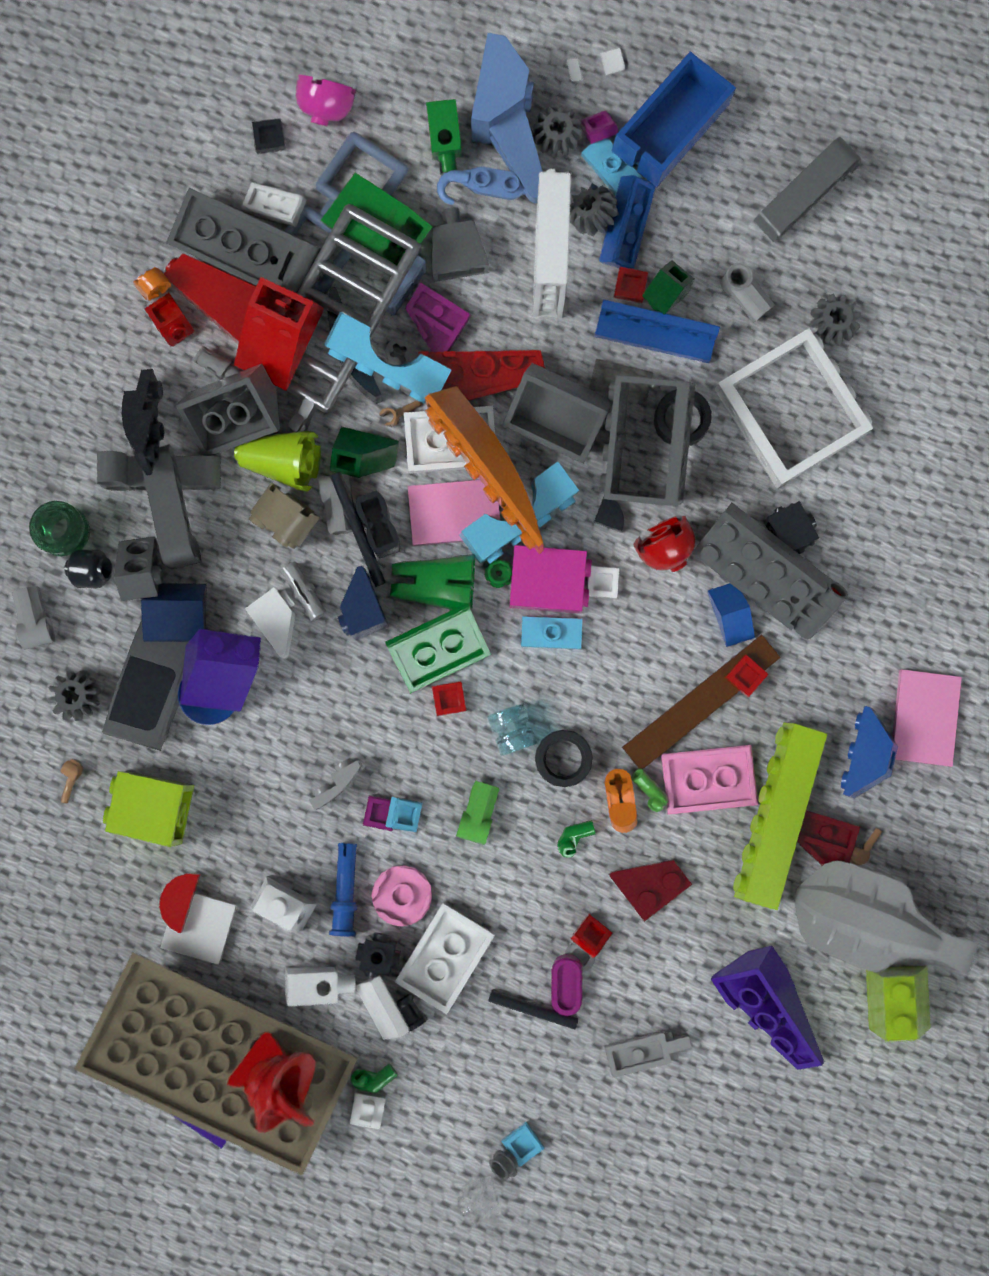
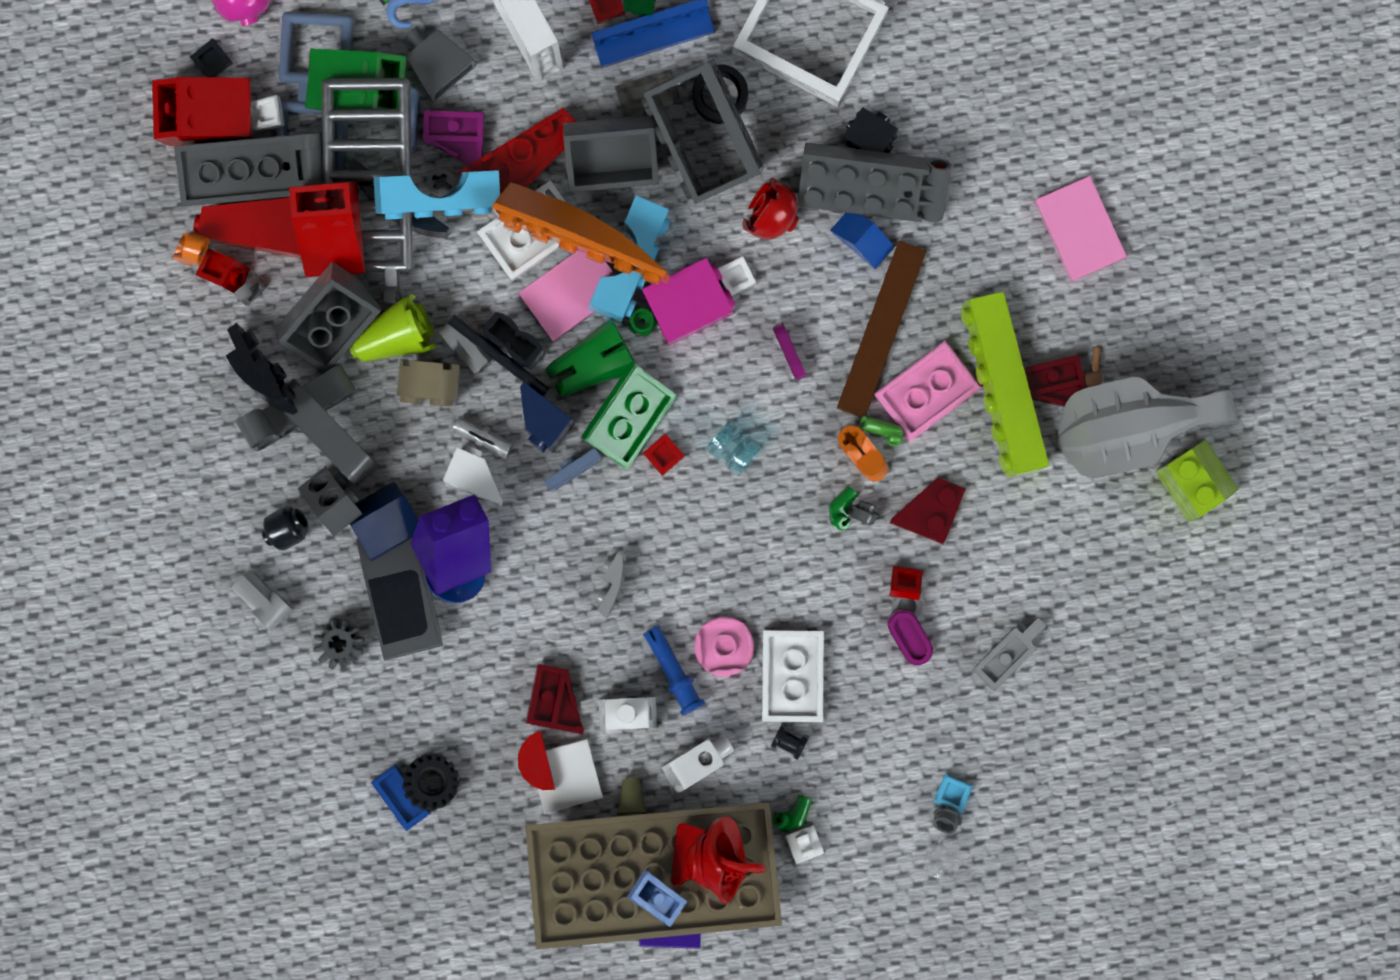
camera: 30 degrees left, 0 degrees up
(45, 519) = (227, 495): clear green piece -> none
(48, 859) = (390, 789): none -> blue tile
(73, 771) = (377, 709): medium nougat hand -> none
(84, 880) = (417, 795): none -> black tyre
(148, 808) = (461, 700): lime slope -> none
(181, 349) = (250, 290): none -> light grey tile
(203, 1090) = (656, 898): none -> medium blue slope
(216, 365) = (288, 286): light grey pin -> none
(226, 855) = (553, 701): none -> dark red wing
(231, 170) = (201, 109): none -> red slope
(241, 981) = (631, 798): none -> olive cone
(362, 453) = (462, 287): dark green slope -> none
(362, 664) = (572, 468): none -> sand blue plate
(377, 813) = (664, 587): magenta tile -> none
(378, 943) = (738, 719): black brick -> none
(382, 1008) = (764, 748): white tile -> none
(399, 412) = (472, 233): medium nougat hand -> none
(404, 814) = (684, 576): medium azure tile -> none
(477, 818) = (749, 543): bright green piece -> none
(532, 1009) = (893, 675): black bar -> none
(551, 632) = (718, 346): medium azure plate -> none
(586, 762) = (791, 469): black tyre -> none
(592, 853) = (865, 512): none -> dark grey plate
(610, 515) = (707, 215): black tile -> none
(610, 674) = (789, 351): none -> magenta tile
(746, 675) = (906, 283): red tile -> none
(767, 994) = (1083, 543): dark purple wedge -> none
(870, 755) = (1051, 289): blue slope -> none

